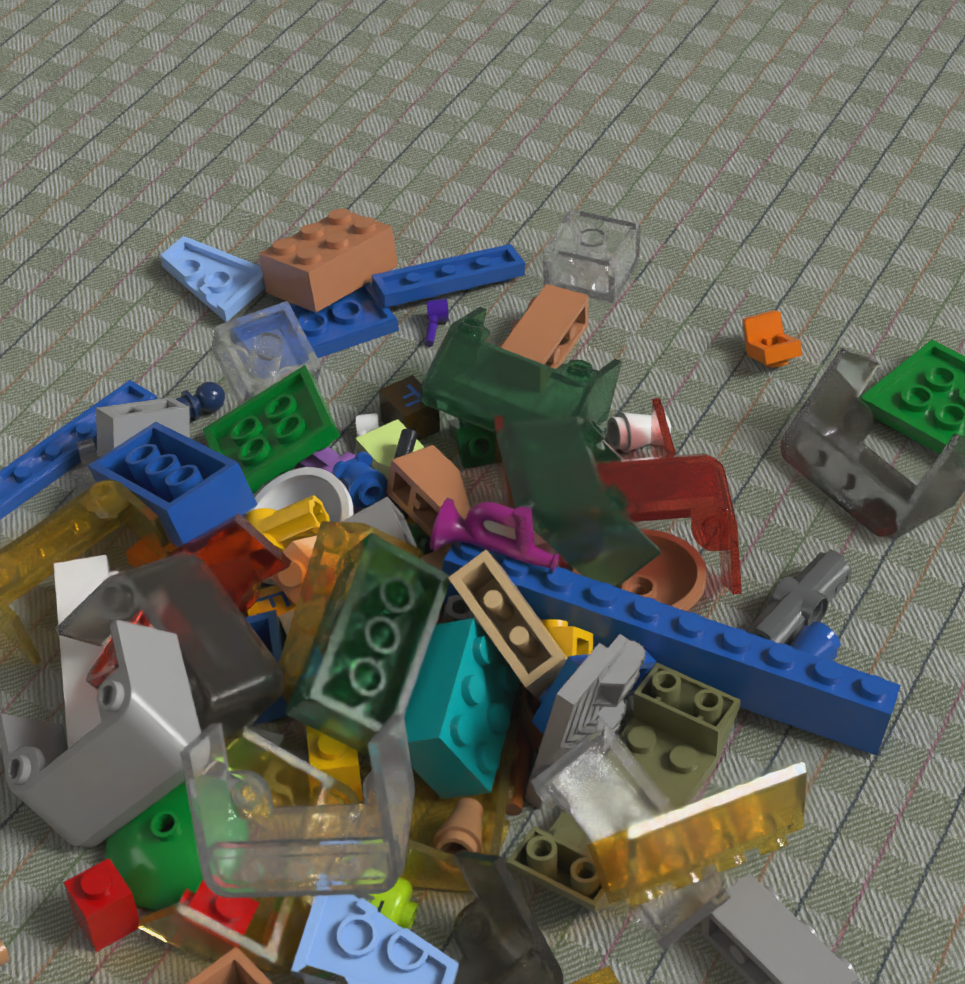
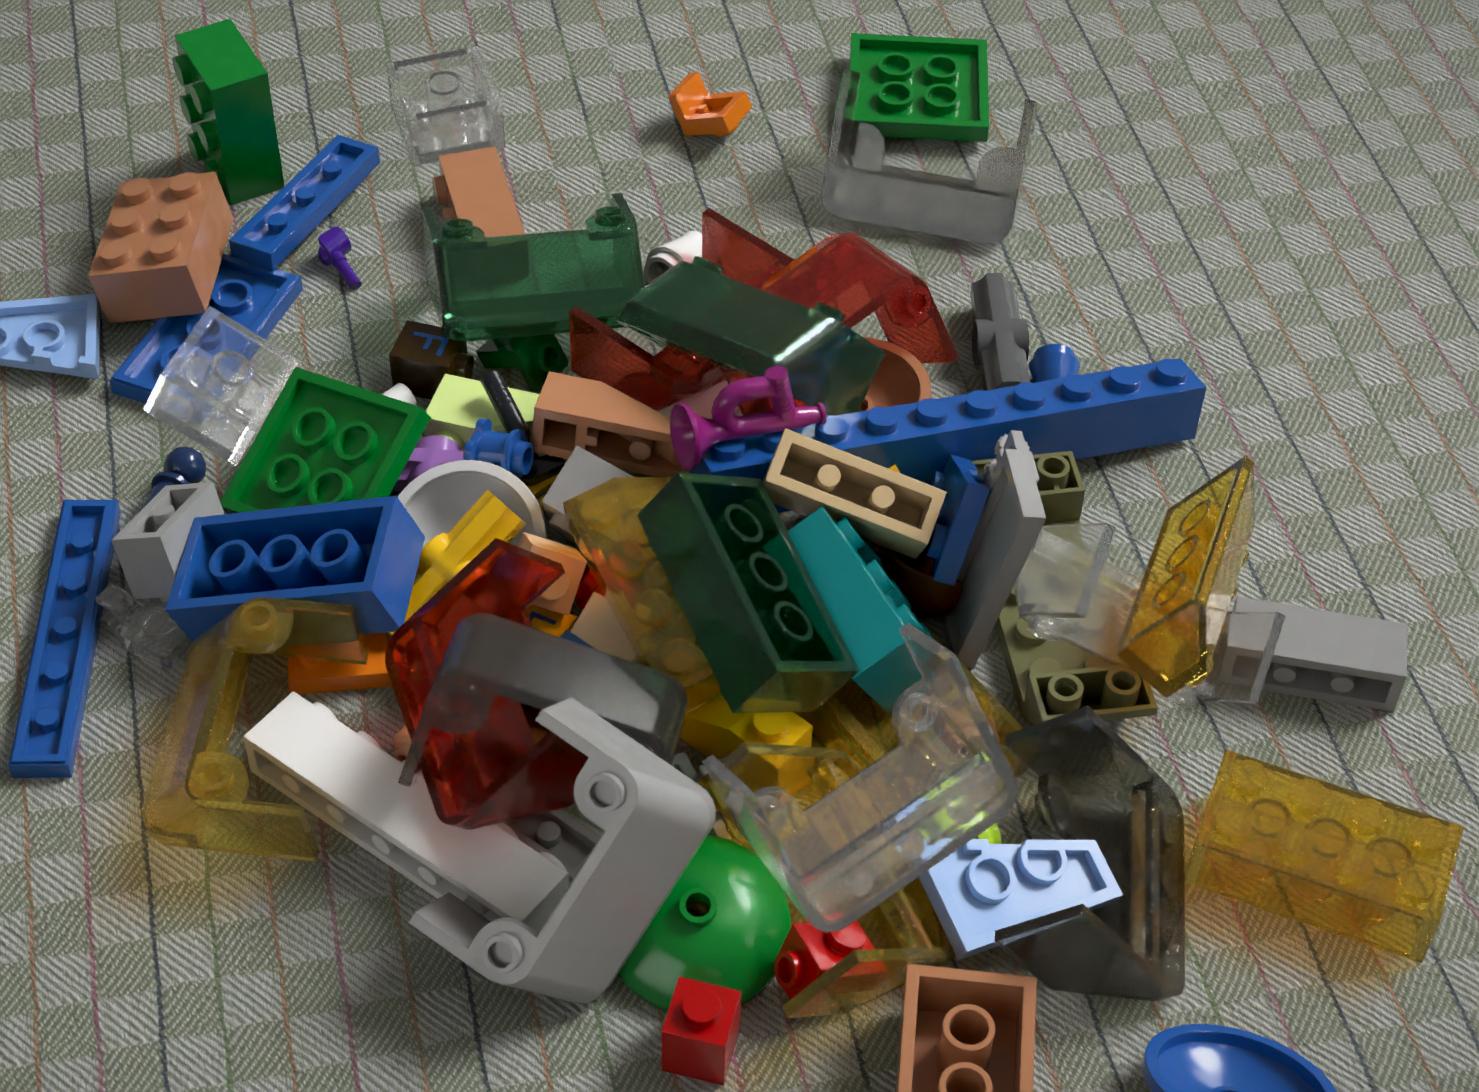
camera: 45 degrees left, 5 degrees up
(439, 193) = (228, 110): none -> green brick

